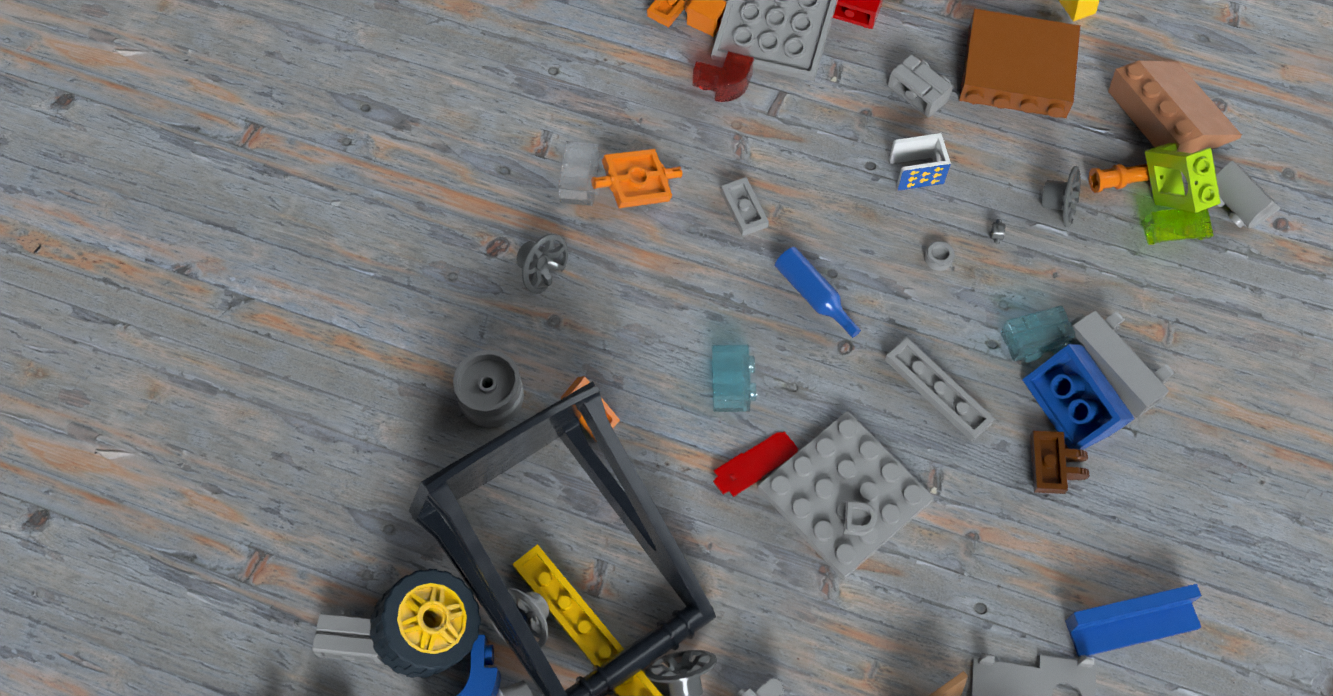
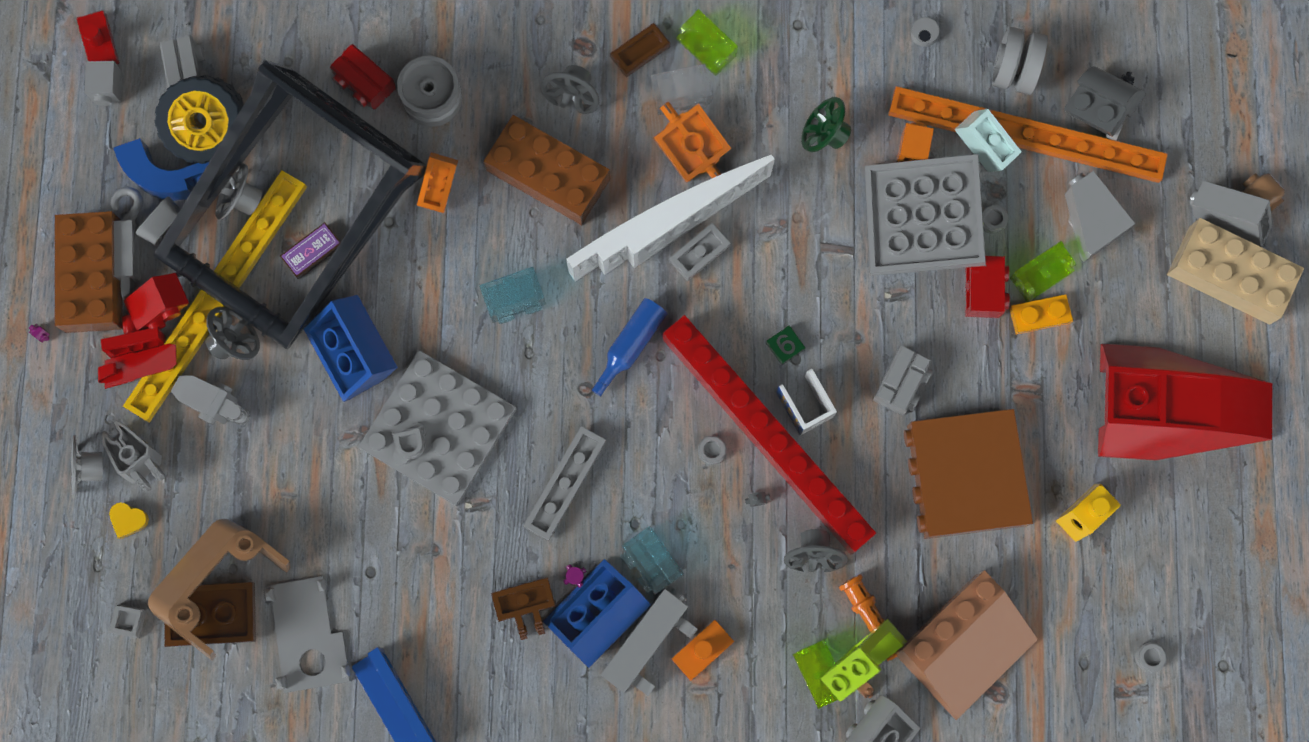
camera: 70 degrees right, 15 degrees up
(440, 449) = (362, 77): none -> red brick
(523, 199) = (640, 50): none -> reddish brown tile
(540, 139) = (707, 42): none -> clear neon green hinge
(611, 564) = (311, 250): none -> medium lavender tile
(614, 308) = (547, 169): none -> dark orange brick
(666, 68) = (830, 129): none -> dark green wheel
(712, 221) = (667, 221): none -> white slope
(729, 81) = (842, 195): clear red brick -> none
(736, 551) = (350, 347): none -> blue slope
(755, 463) = (440, 341): red piece -> none
(856, 167) = (785, 345): none -> dark green tile
(938, 202) = (768, 435): none -> red brick
(1033, 410) = (574, 575): none -> magenta piece
(1138, 327) = (702, 650): none -> orange tile

